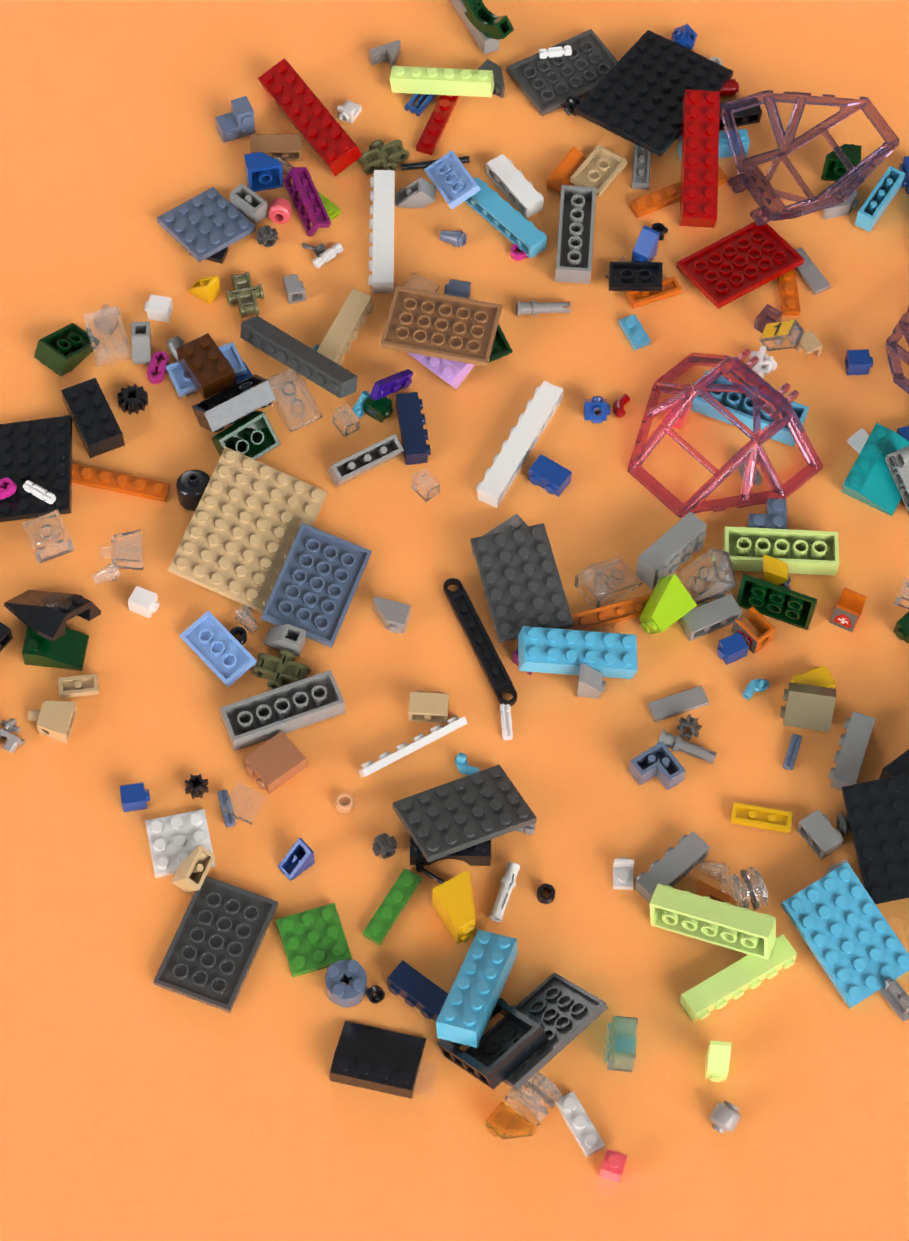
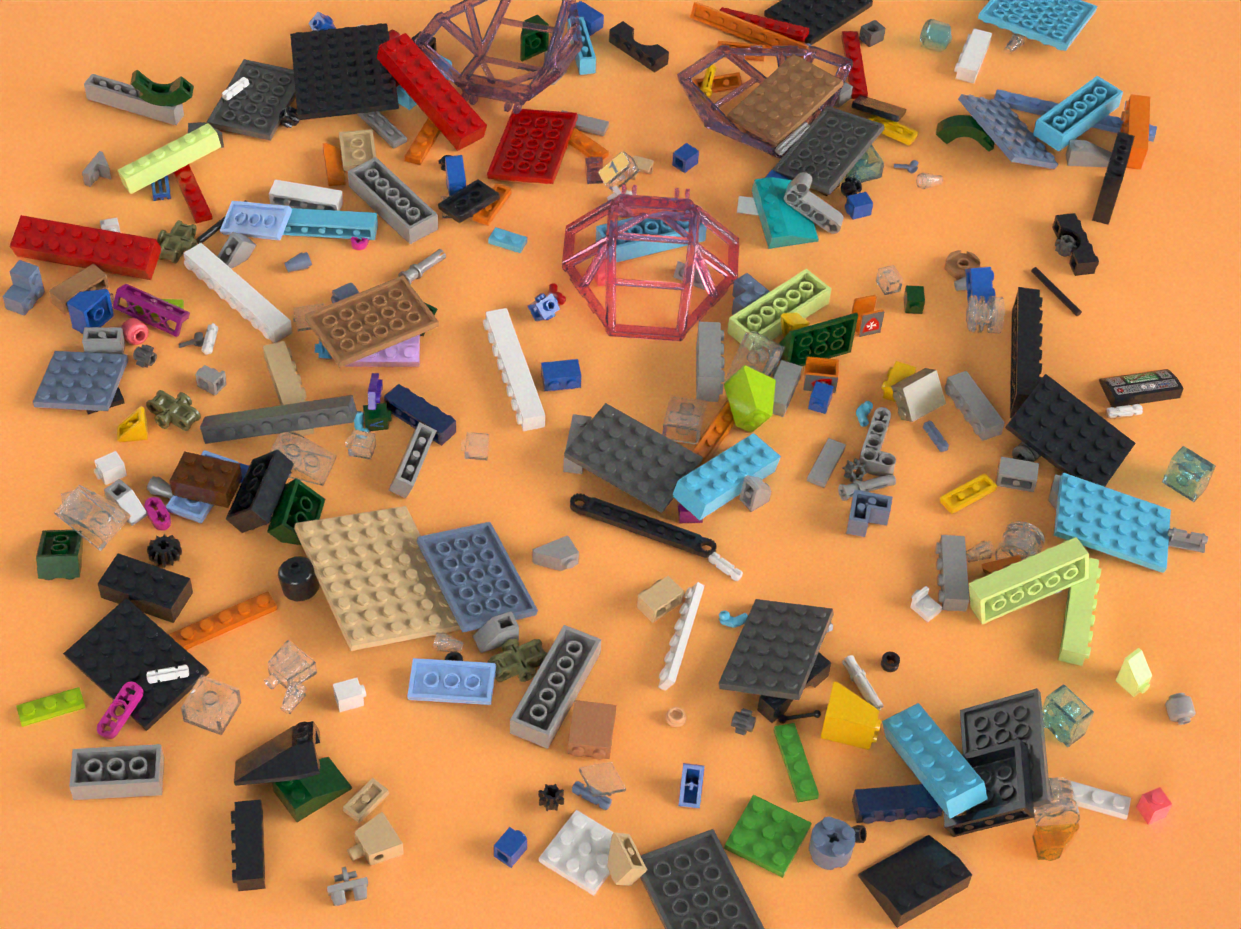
camera: 45 degrees left, 10 degrees down
(756, 706) = (877, 461): none -> light grey beam

